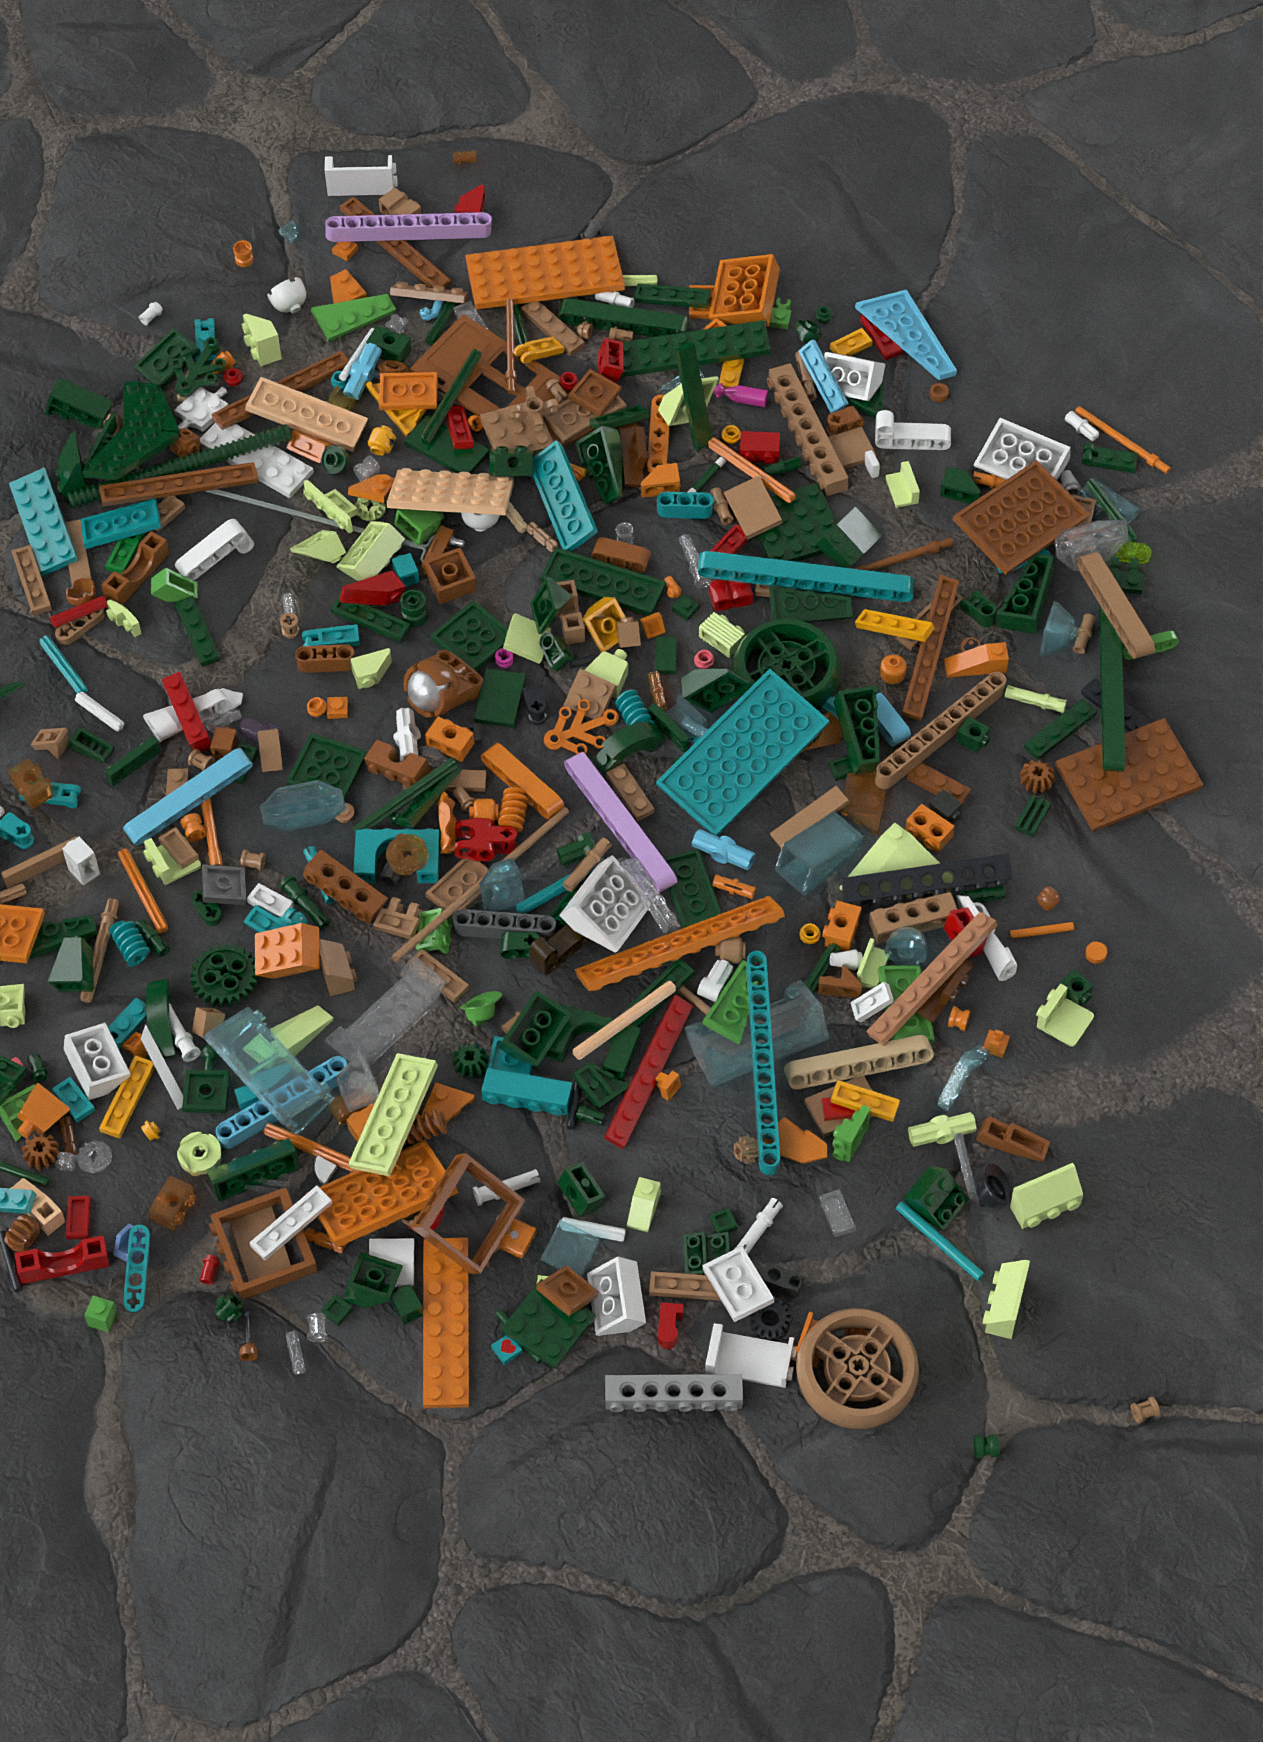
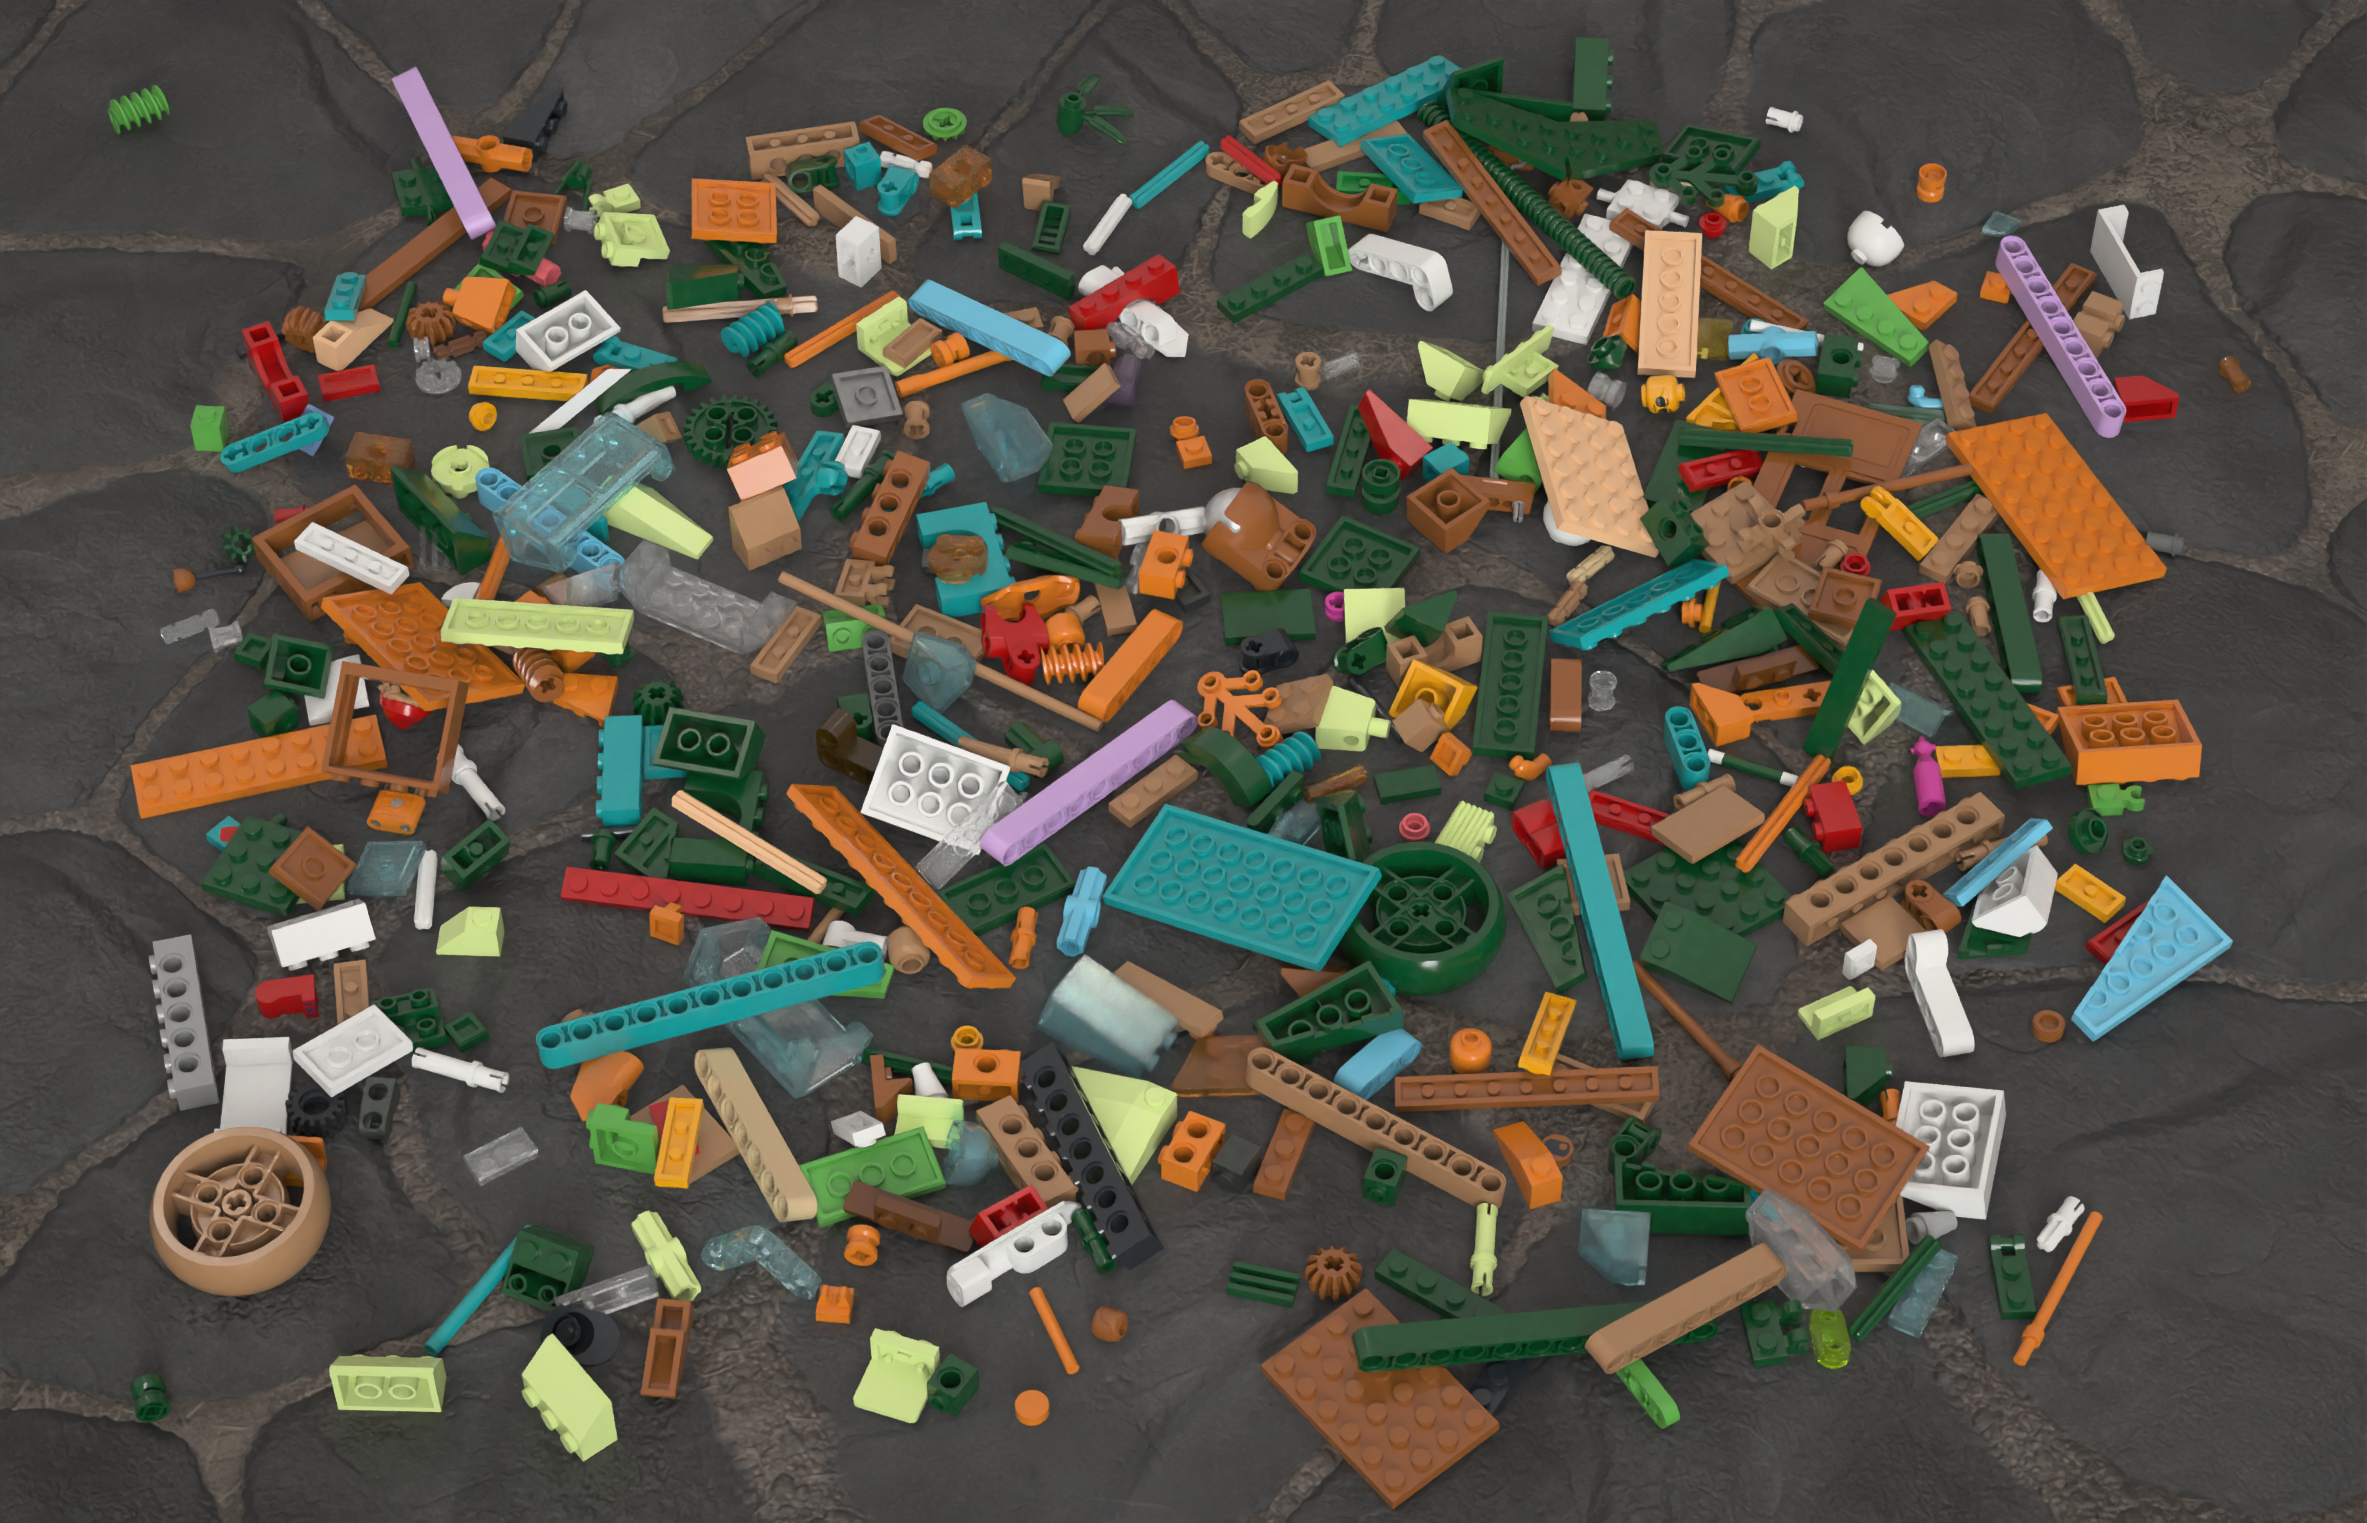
camera: 75 degrees right, 10 degrees down
(346, 815) = (1022, 495): nougat plate -> none
(481, 1007) = (741, 696): bright green piece -> none
(932, 978) = (904, 1180): nougat plate -> none
(1084, 633) = (1632, 1292): medium nougat pin -> none

